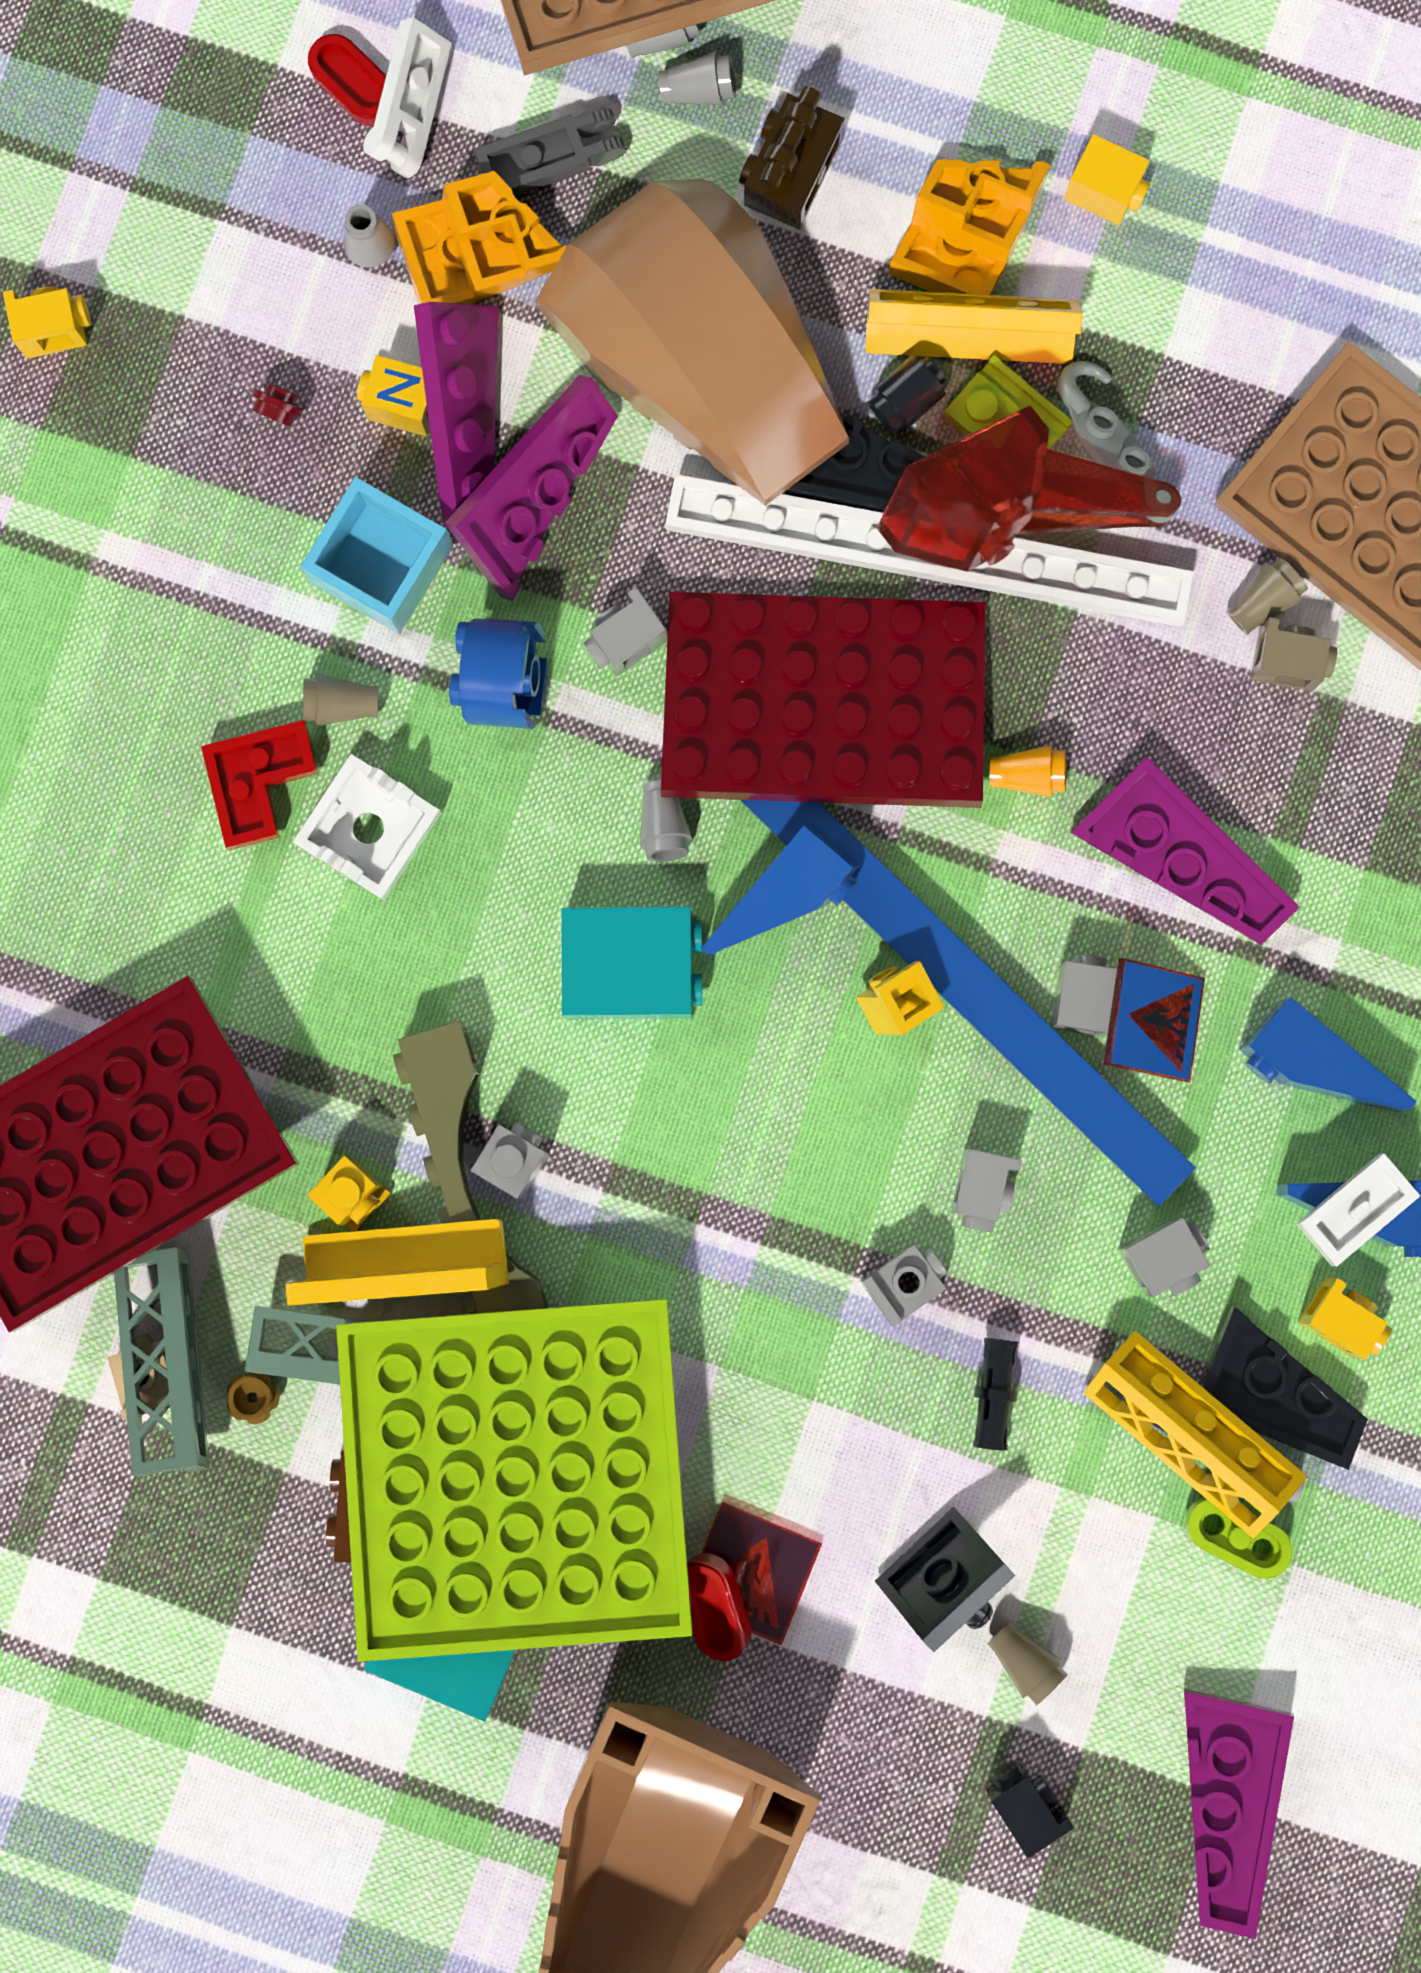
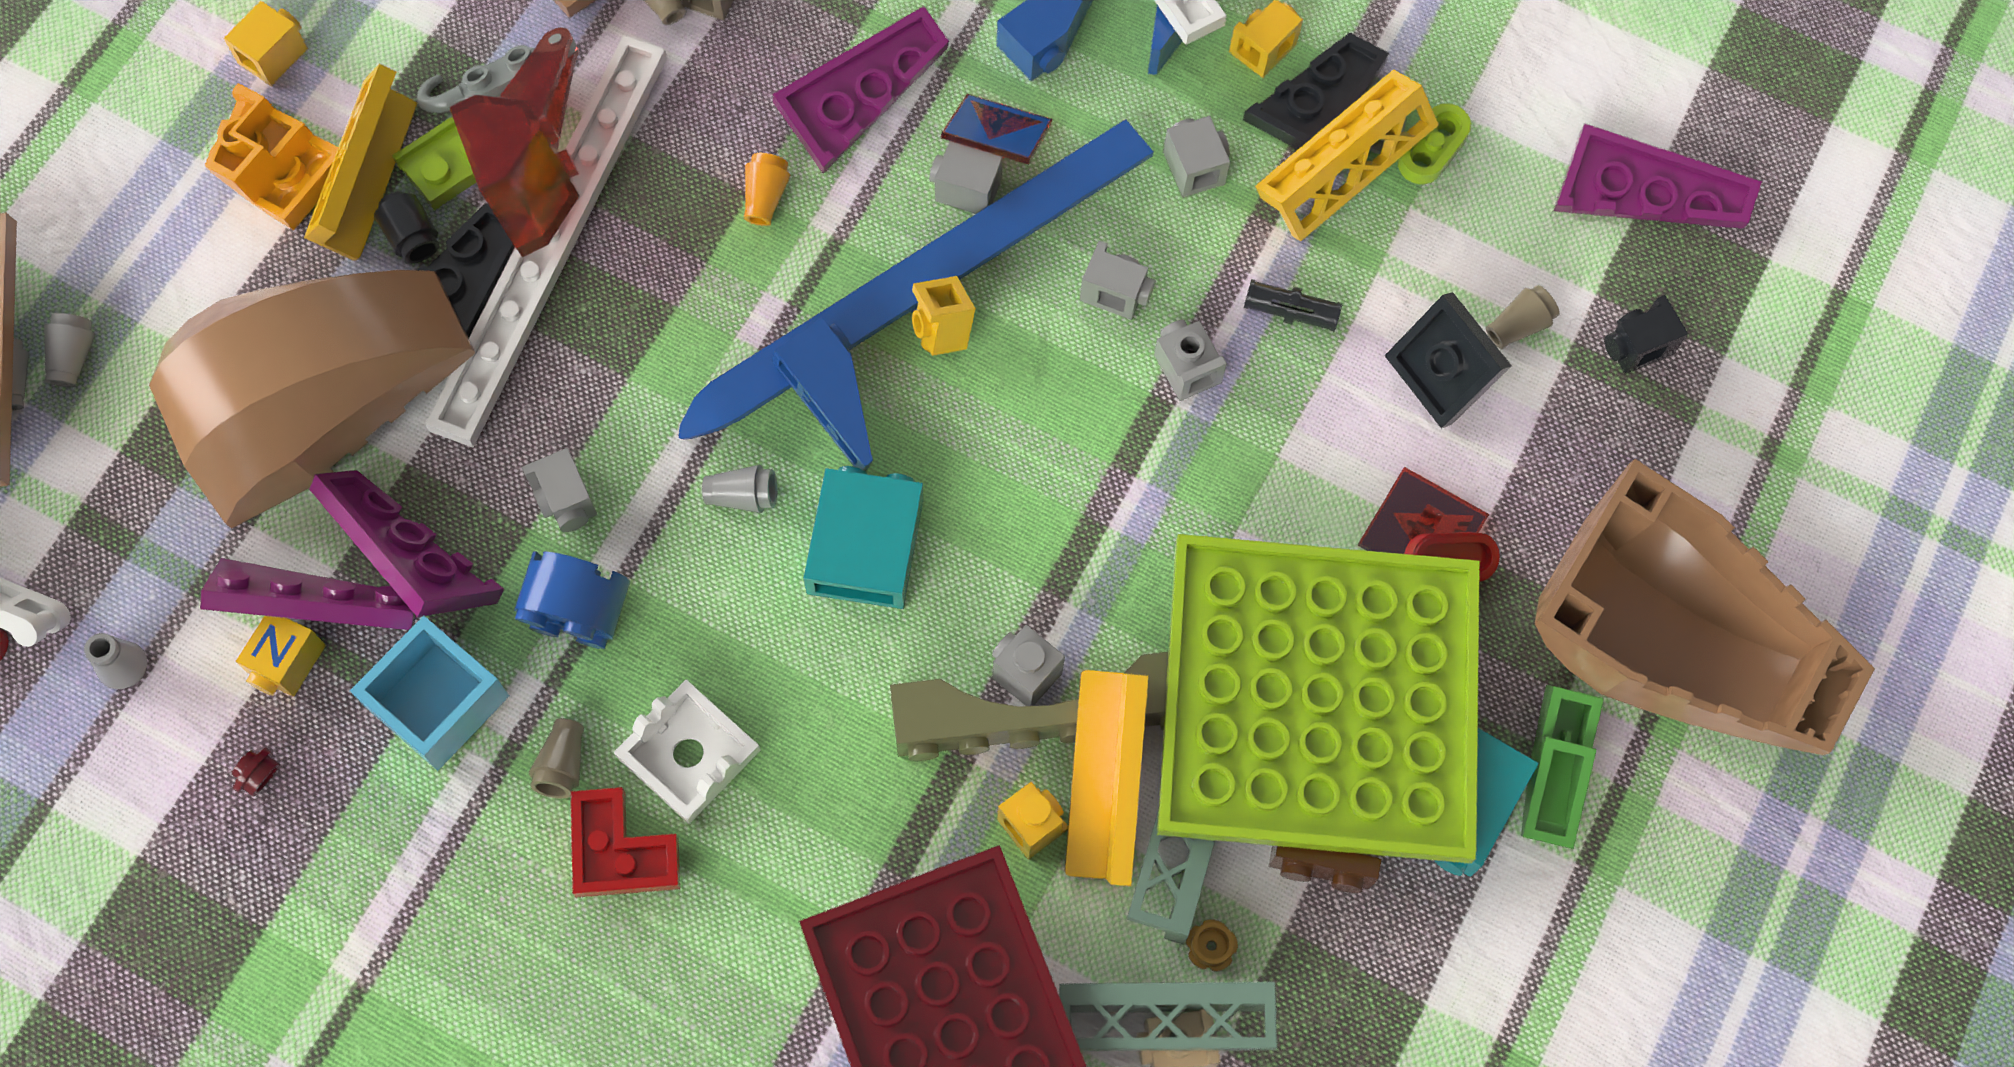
camera: 90 degrees left, 15 degrees down
(47, 321) = (100, 984): yellow brick -> none
(473, 242) = (153, 566): light orange slope -> none
(500, 1748) = (1565, 765): none -> bright green slope
(551, 151) = (89, 492): dark grey hinge -> none
(793, 158) = (161, 278): dark brown brick -> none
(824, 700) = (662, 339): dark red plate -> none

